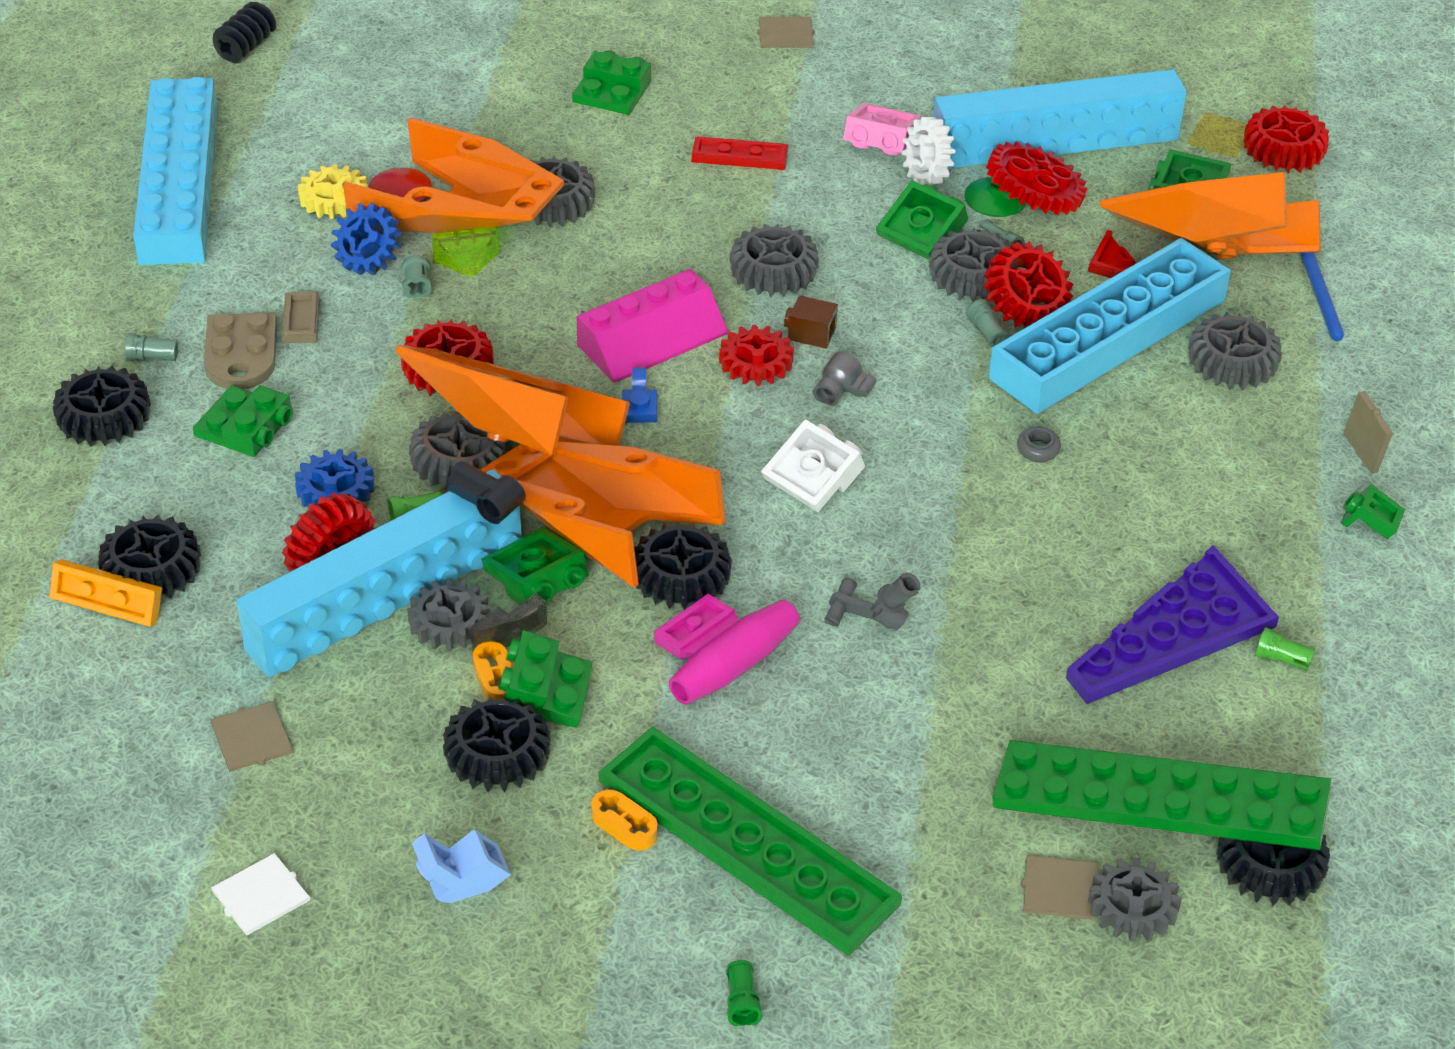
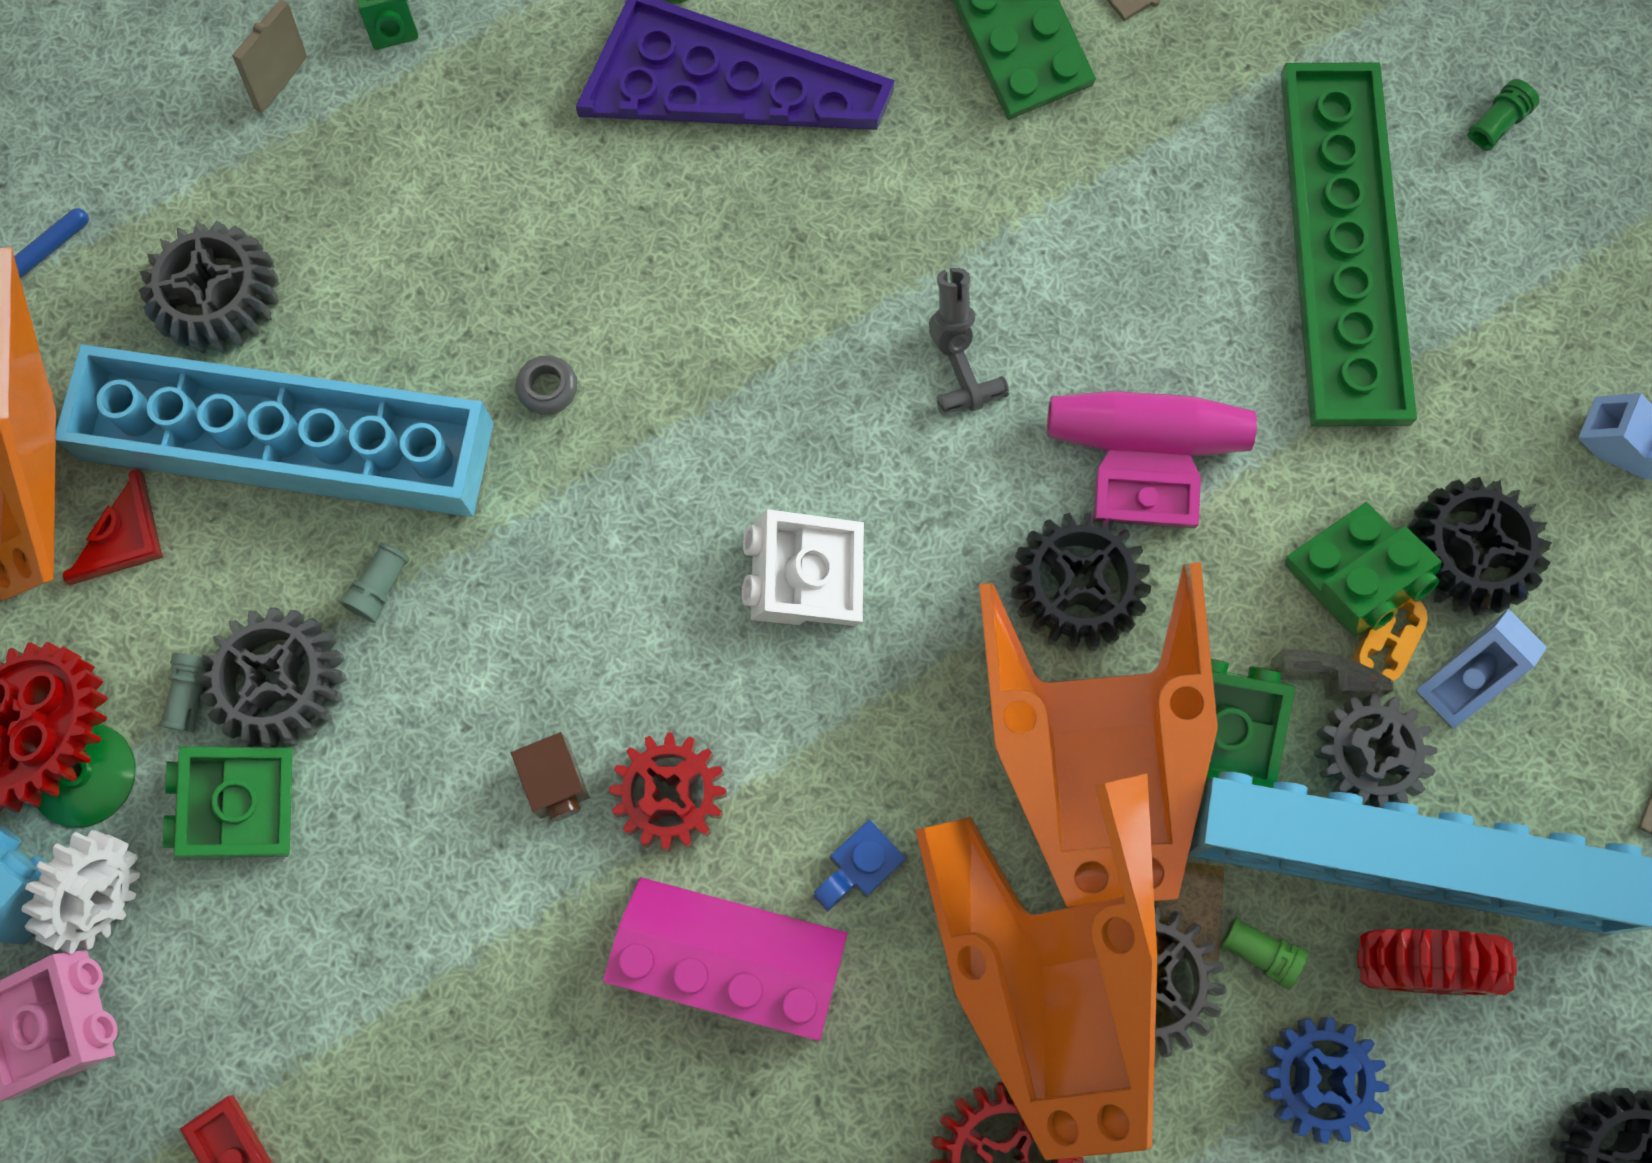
camera: 130 degrees left, 30 degrees up
(431, 695) = (1482, 669): none -> light blue slope
(492, 496) = (1268, 779): black piece -> none
(628, 815) = (1442, 361): light orange beam -> none
(774, 260) = (463, 950): dark grey gear -> none
(842, 375) = (621, 667): flat silver piece -> none
(1016, 289) = (284, 562): red gear -> none

